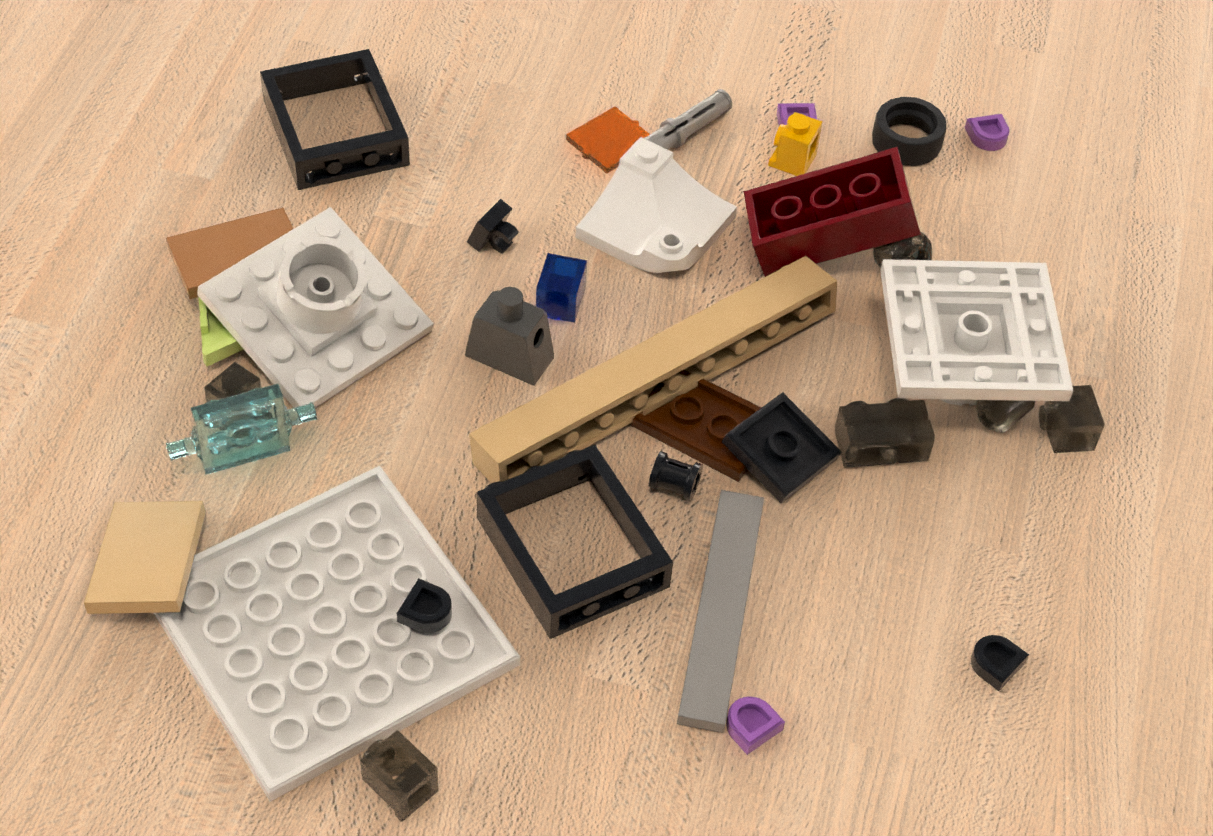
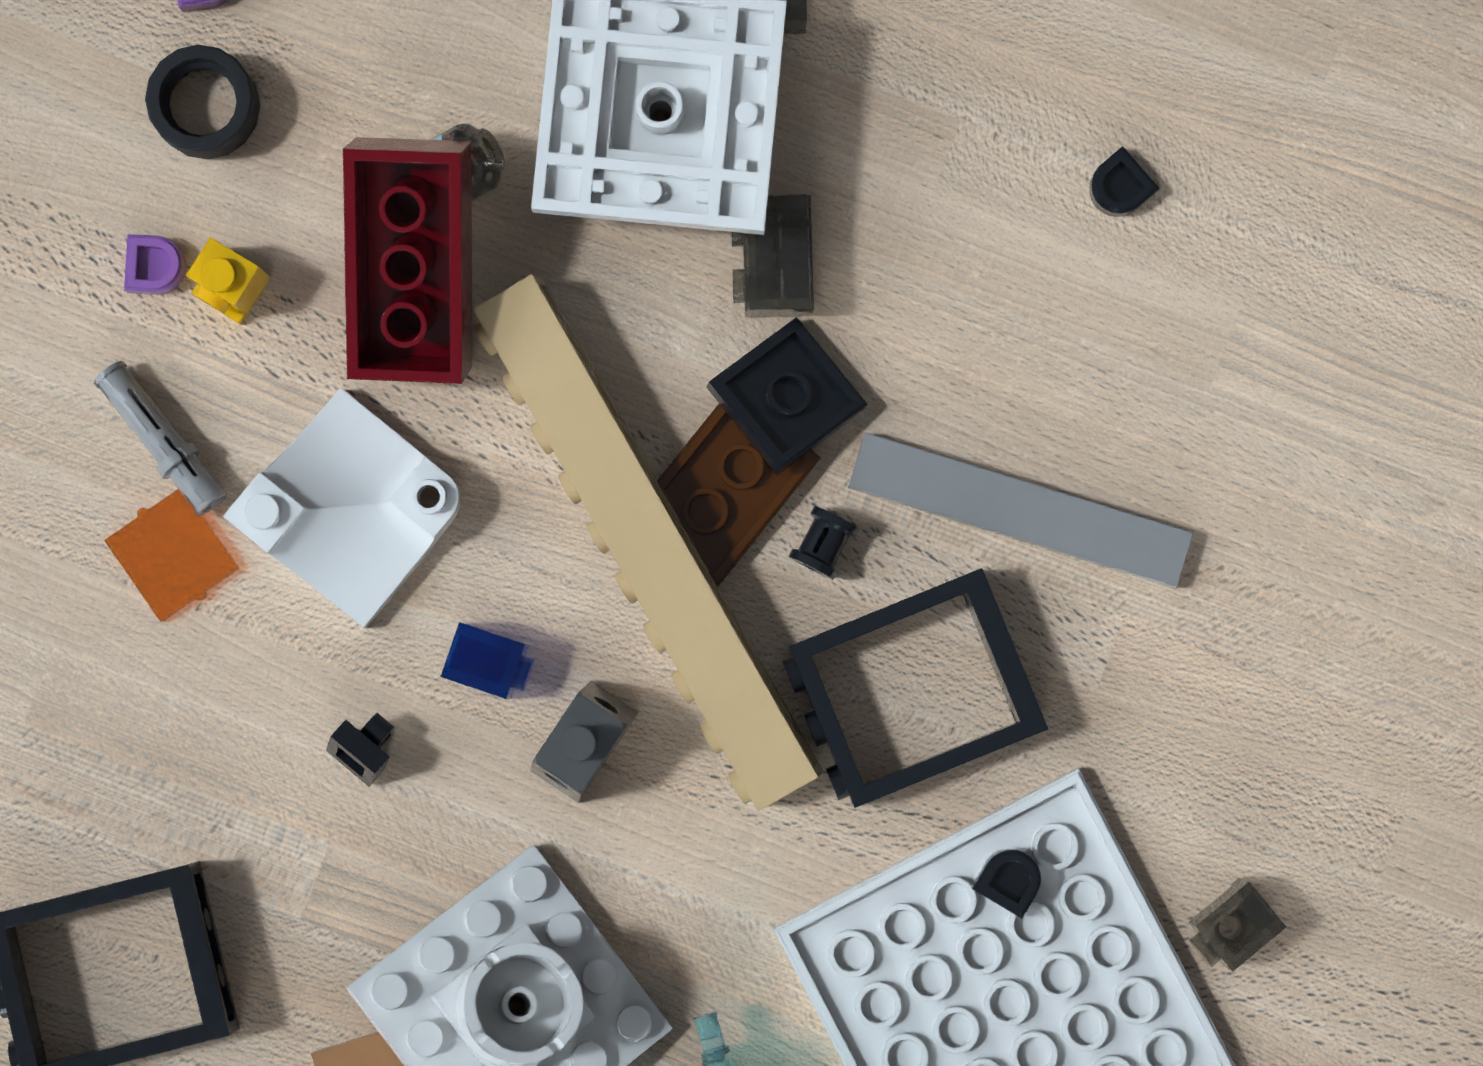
camera: 80 degrees left, 35 degrees up
(752, 723) = (1184, 498): medium lavender tile -> none

